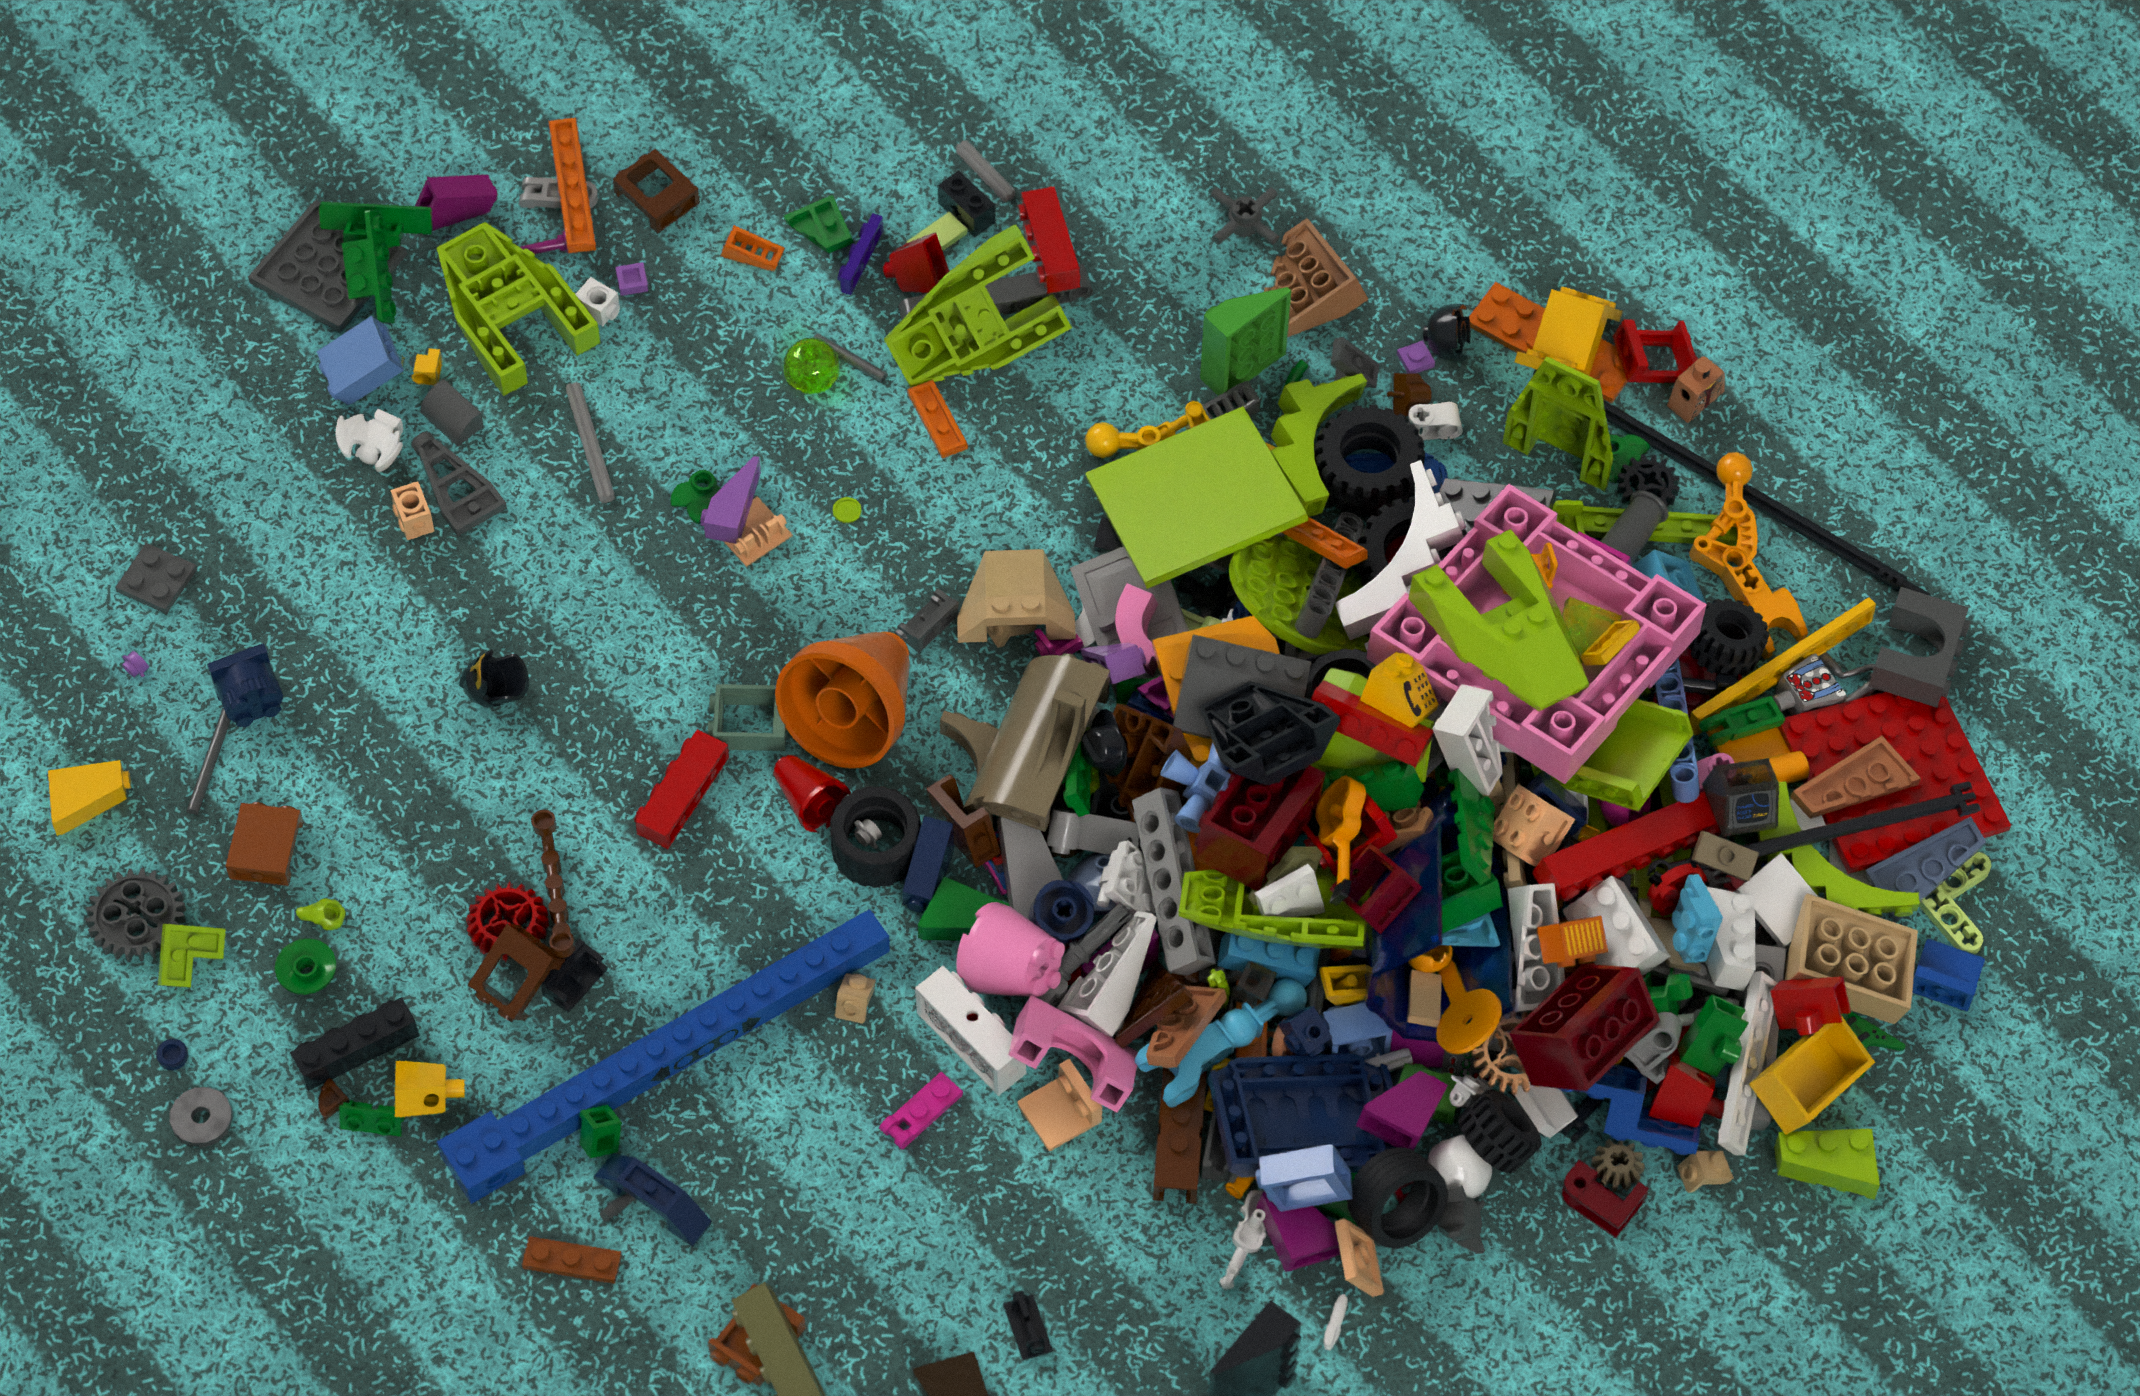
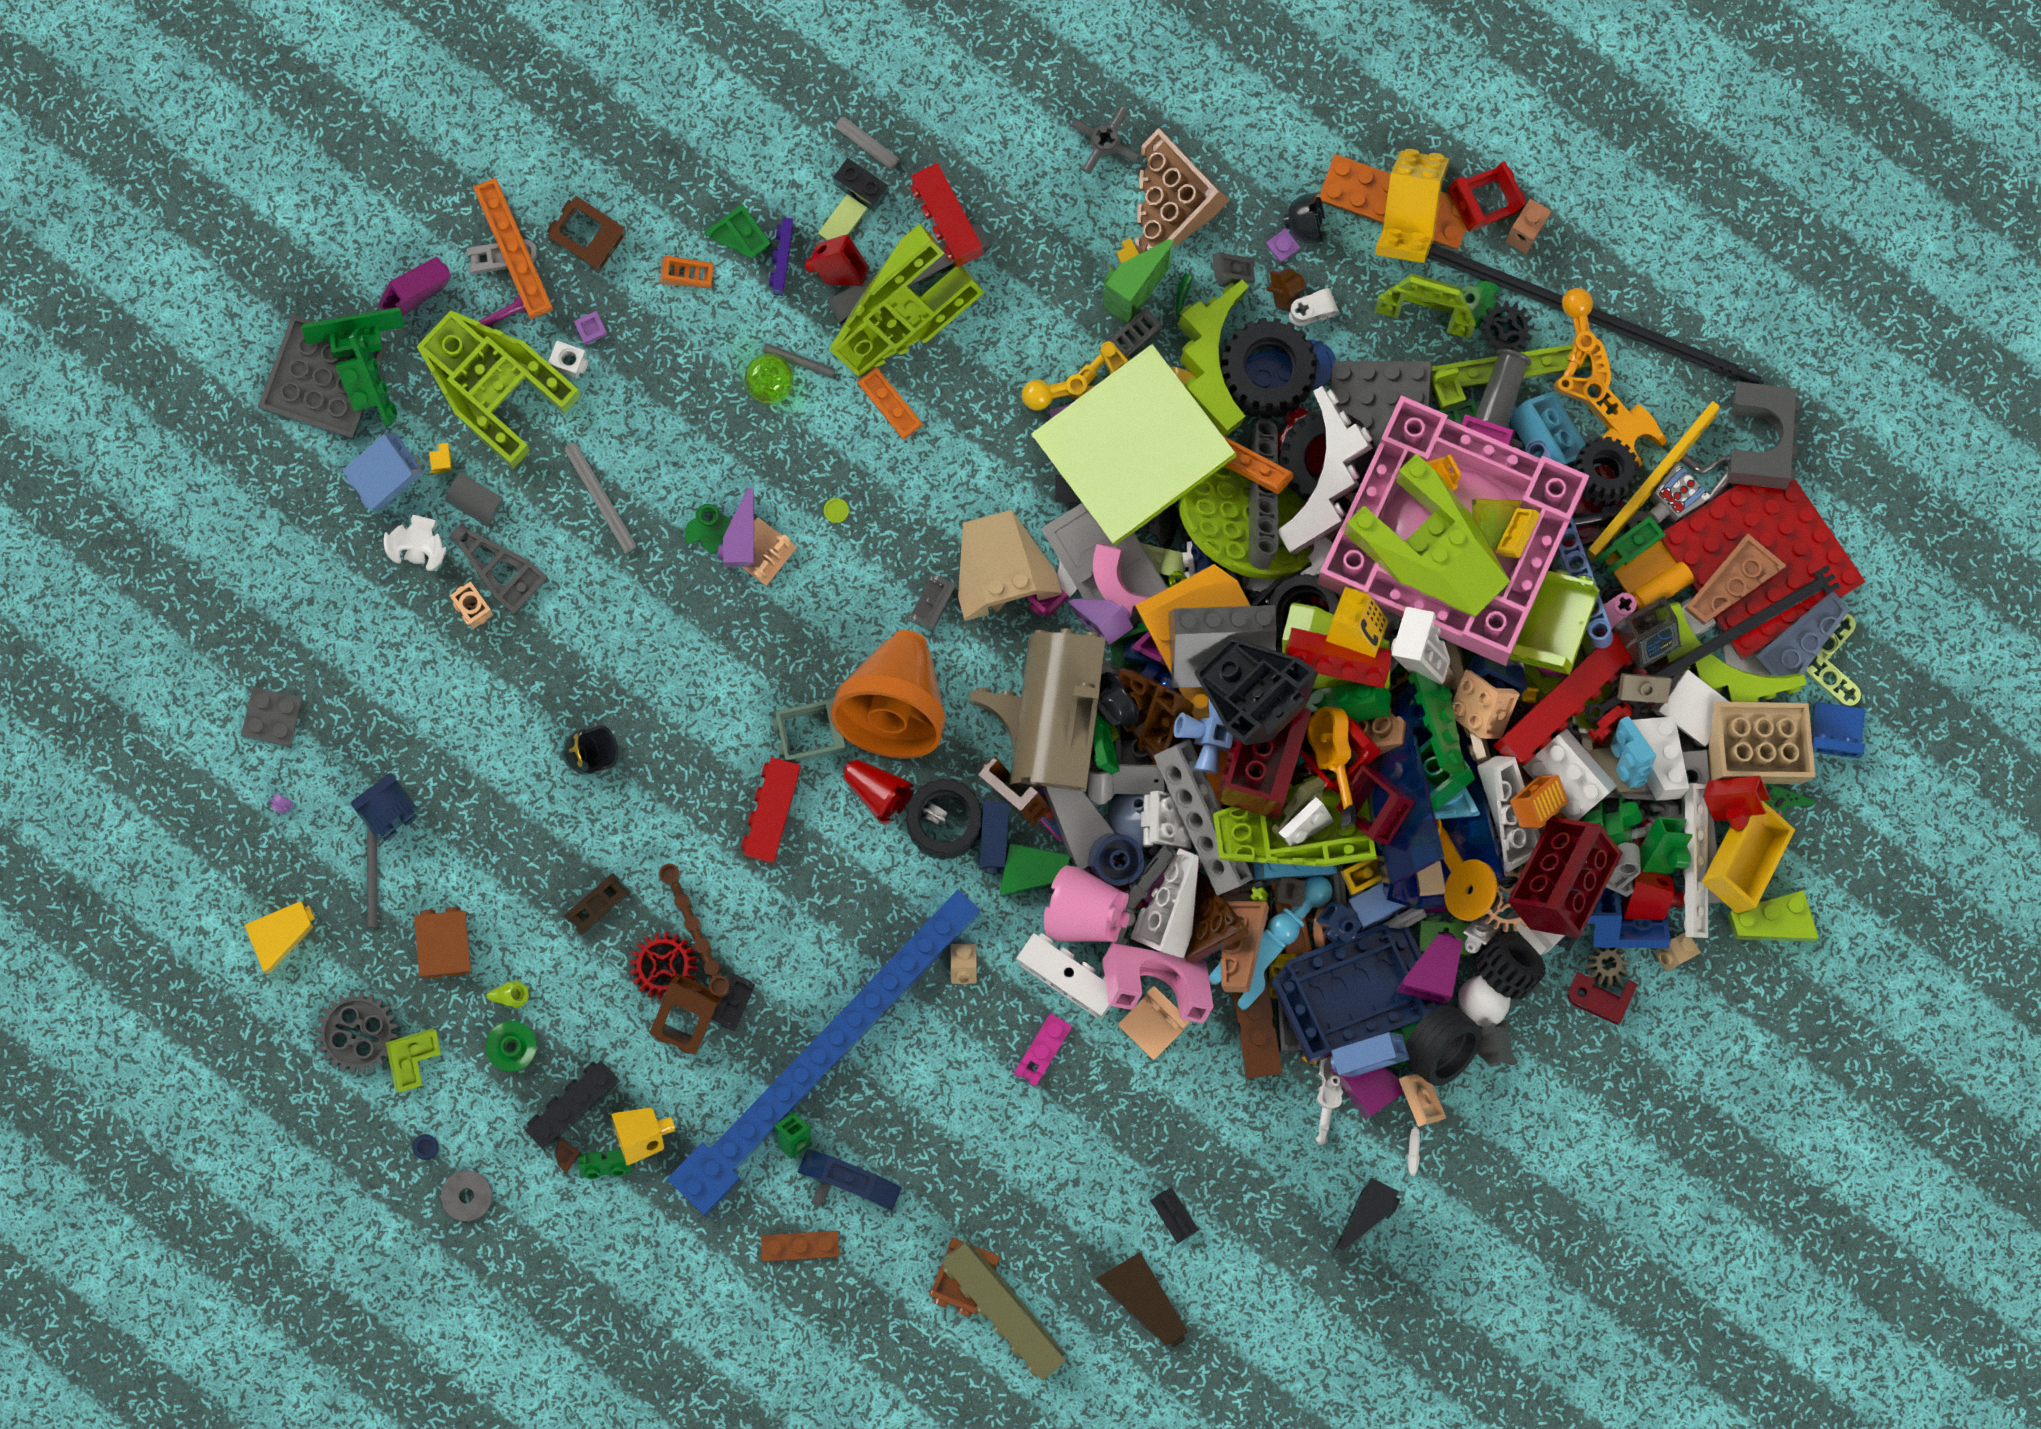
camera: 15 degrees left, 20 degrees up
(453, 842) = (597, 904): none -> dark brown plate

